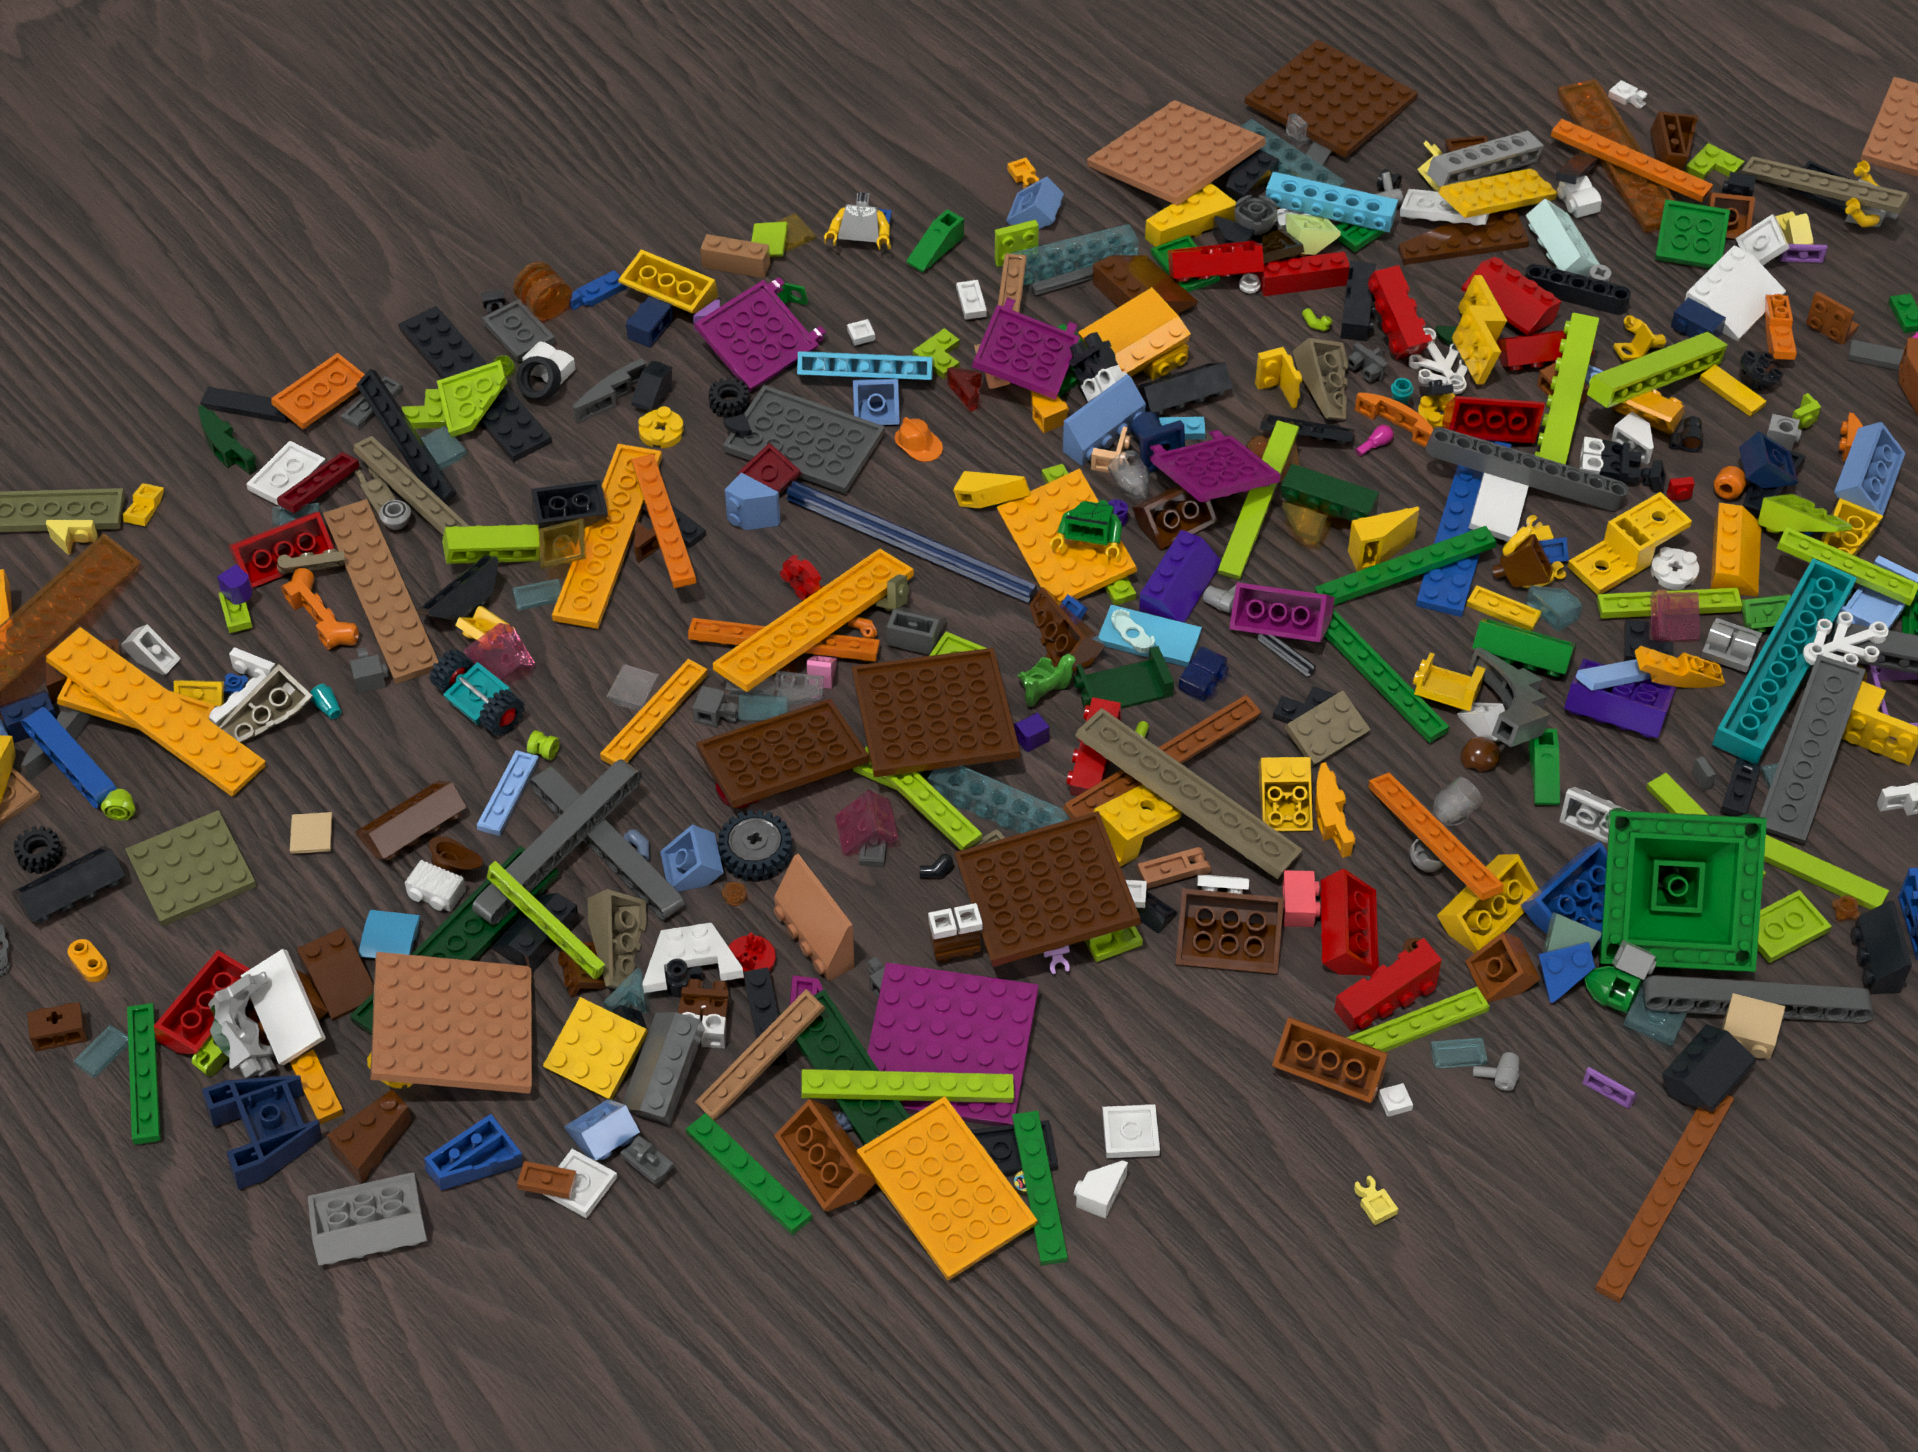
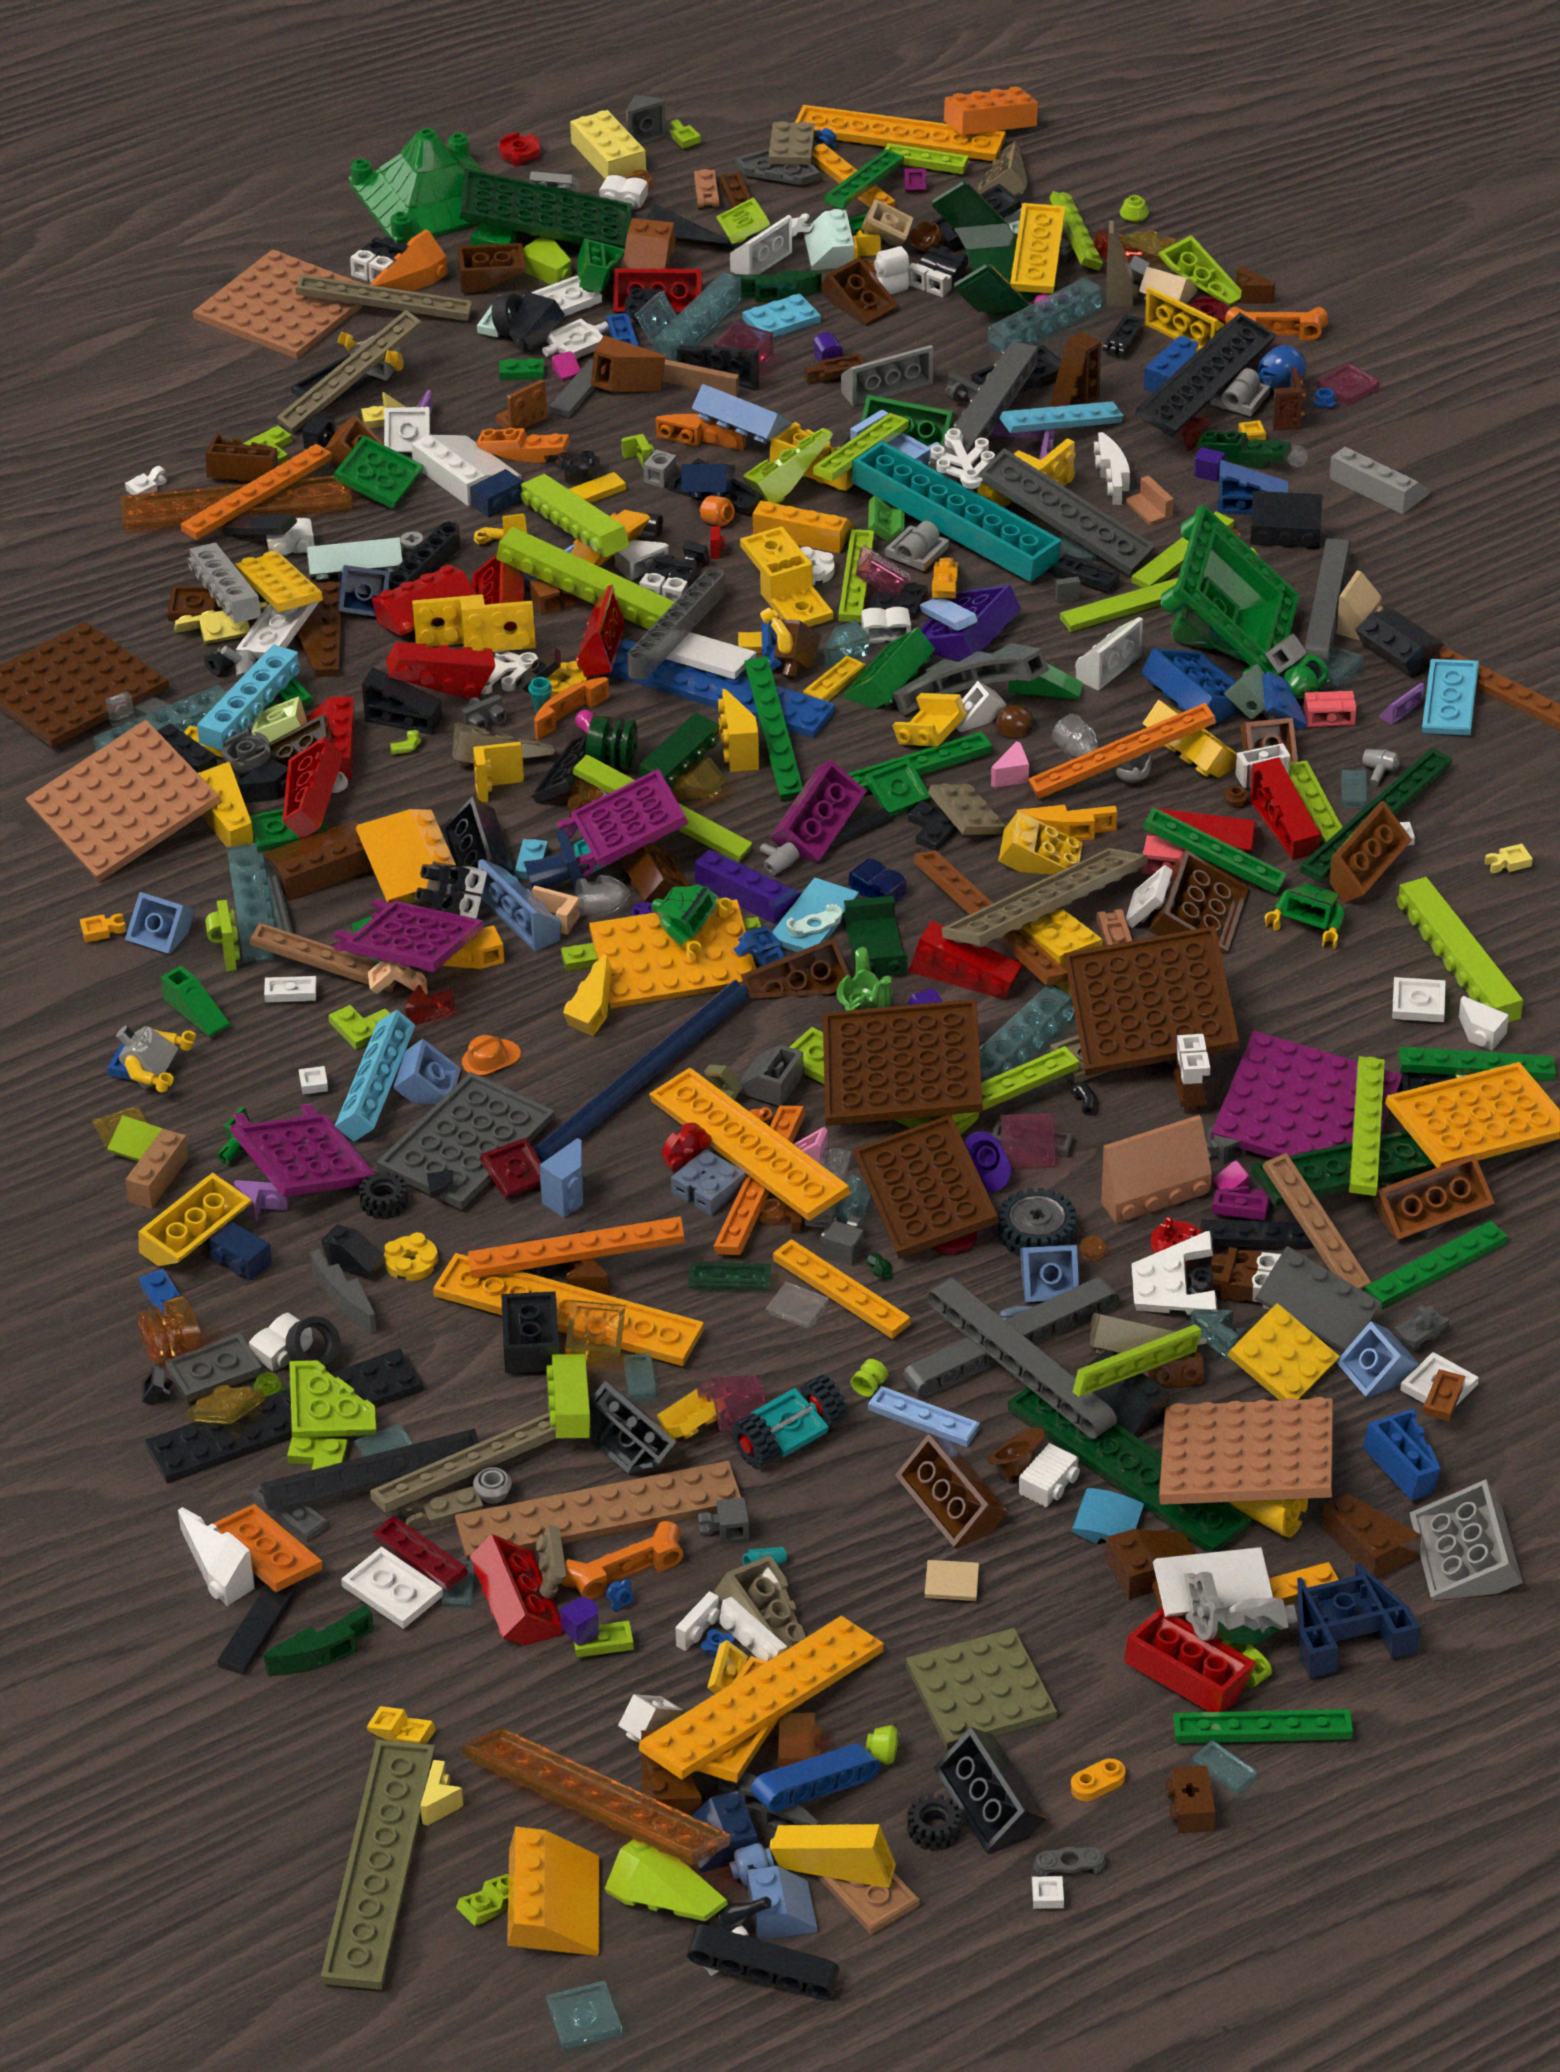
camera: 80 degrees left, 10 degrees down
(119, 748) = (797, 1738): none -> clear orange brick
(282, 613) = (620, 1594): none -> blue plate
(300, 364) = (220, 1558): none -> white wedge
(468, 340) = (225, 1404): none -> clear yellow plate
(661, 635) = (729, 1275): none -> clear green plate
(687, 737) = (880, 1266): none -> dark green plant
(772, 601) = (708, 1182): none -> sand blue piece
(831, 798) = (989, 1160): none -> dark purple piece
(842, 993) = (1231, 1177): none -> dark pink slope
(1085, 591) = (757, 942): none -> blue hinge
(1210, 1162) = (1458, 948): none -> lime brick
(1243, 1025) = (1311, 906): none -> green torso
(1299, 927) = (1214, 850): none -> green plate
(1340, 449) = (616, 743): none -> dark green wheel
(1345, 670) = (897, 787): none -> green tile
(1404, 758) = (1010, 768): none -> bright pink slope
(1432, 1080) = (1395, 796): none -> dark green plate
(1459, 962) = (1247, 758): none -> white brick
(1515, 247) = (359, 587): none -> dark blue slope
(1578, 1018) = (1330, 708): none -> coral brick
(1596, 634) = (885, 624): none -> white brick
(1633, 1128) = (1450, 697): none -> medium azure tile
(1883, 833) = (1152, 502): none -> nougat panel

